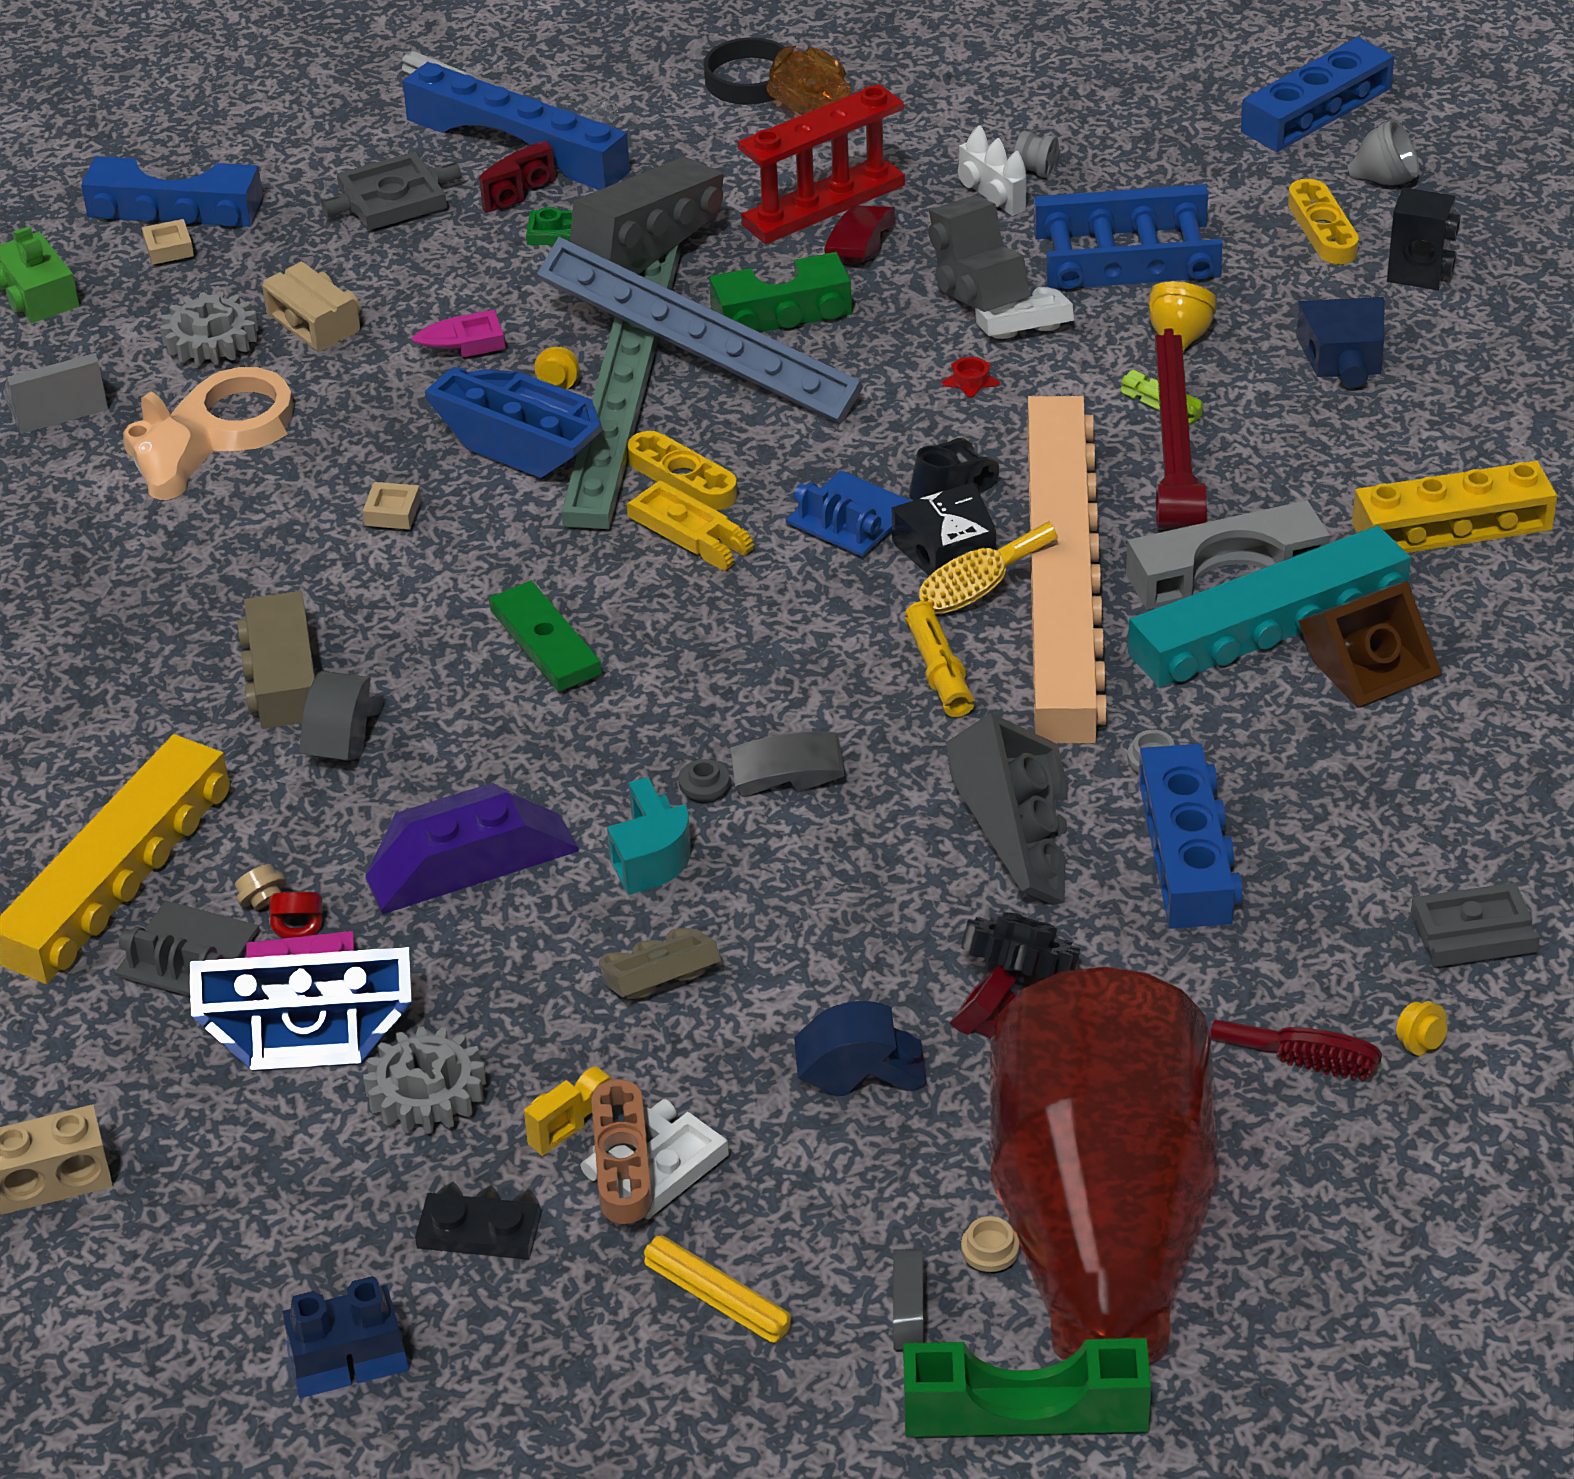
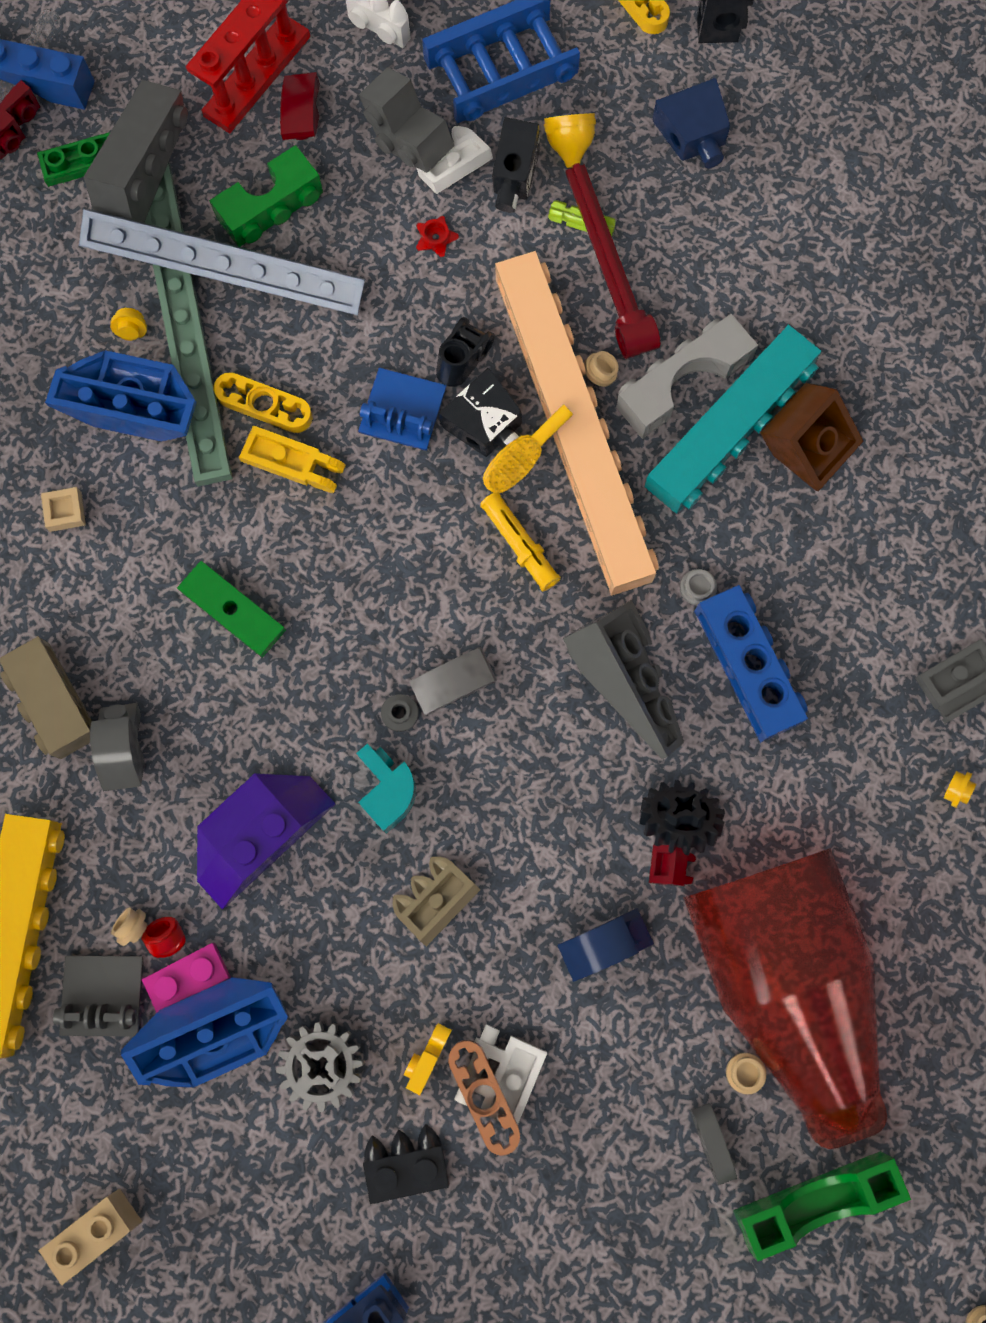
camera: 20 degrees left, 35 degrees up
(469, 333) = (44, 306): dark pink plate -> none
(717, 1289) = (584, 1172): yellow axle -> none
(1098, 319) = (515, 162): none -> black torso
(1120, 525) = (601, 368): none -> tan plate
(1305, 1045) = (886, 832): dark red piece -> none
(1459, 506) = (827, 279): yellow brick -> none

